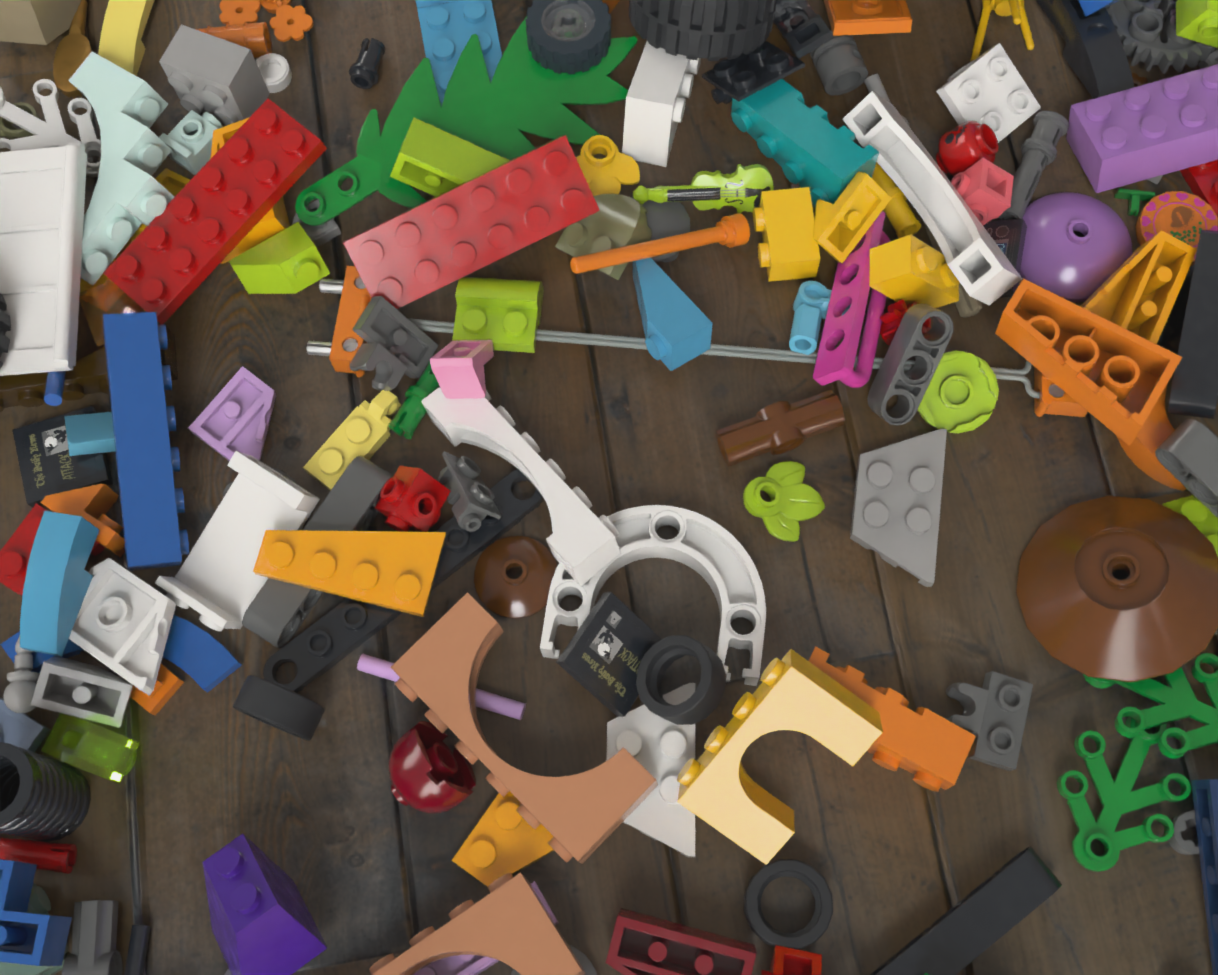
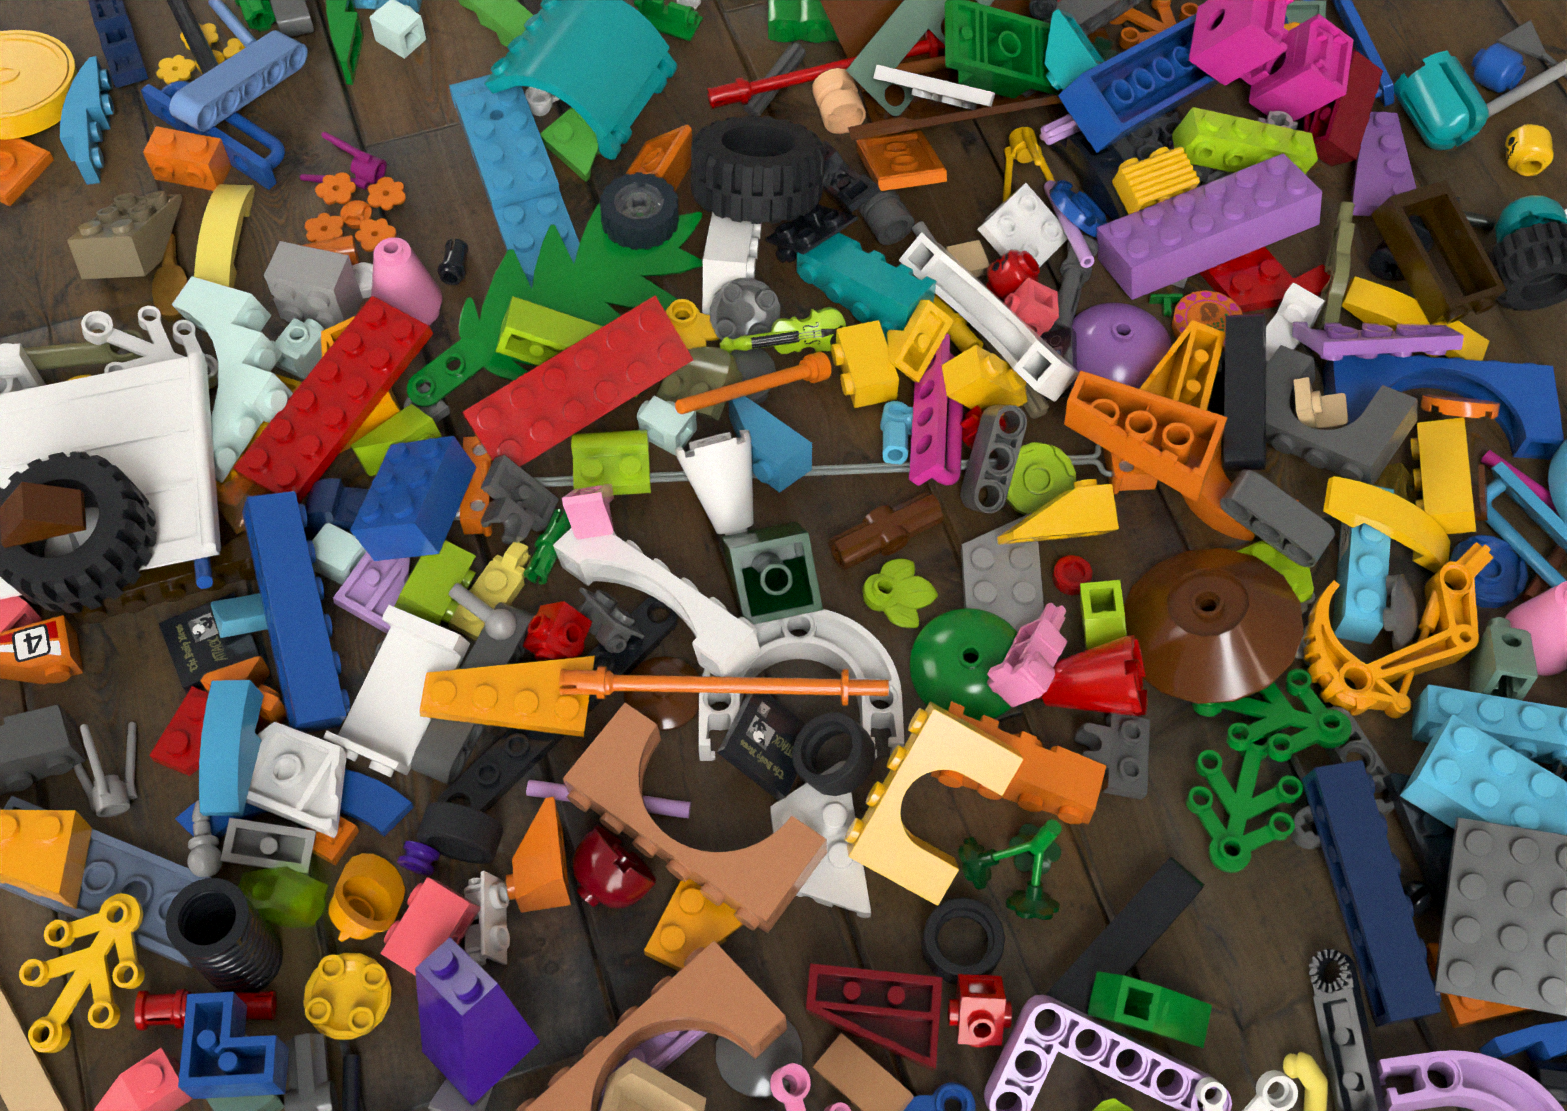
camera: 15 degrees left, 10 degrees down
(144, 861) = (347, 996): none -> yellow dish
(177, 760) = (366, 897): none -> light orange piece
(198, 376) = (336, 553): none -> light aqua panel
(205, 331) = (332, 504): none -> dark blue brick
(235, 803) = (430, 920): none -> coral brick
(236, 724) = (418, 858): none -> dark purple bush
(281, 332) = (413, 499): none -> blue brick
(294, 426) = (431, 582): none -> lime brick
(296, 822) = (489, 937): none -> white hinge
(309, 86) = (404, 281): none -> bright pink cone
(351, 482) = (499, 623): none -> light grey bar
(359, 751) = (540, 864): none -> orange slope
(449, 567) = (604, 683): none -> orange bar
(558, 279) = (665, 424): none -> light aqua brick
(610, 350) = (722, 479): none -> white cone
(647, 464) = (772, 572): none -> dark green slope
(665, 155) = (744, 309): none -> dark grey dish
(838, 624) = (942, 673): none -> green dish
(879, 812) = (1033, 851): none -> dark green plant
(910, 607) = (1031, 659): none -> bright pink piece
(923, 121) = (971, 256): none -> tan tile
(975, 504) = (1071, 572): none -> red tile
(981, 439) = (1072, 514): none -> yellow slope
(982, 635) = (1101, 680): none -> red cone
(1000, 573) = (1102, 612): none -> lime slope
(1040, 97) = (1072, 232): none -> lavender piece
(1053, 78) = (1077, 207): none -> blue tile
(1148, 55) = (1154, 179): none -> yellow brick

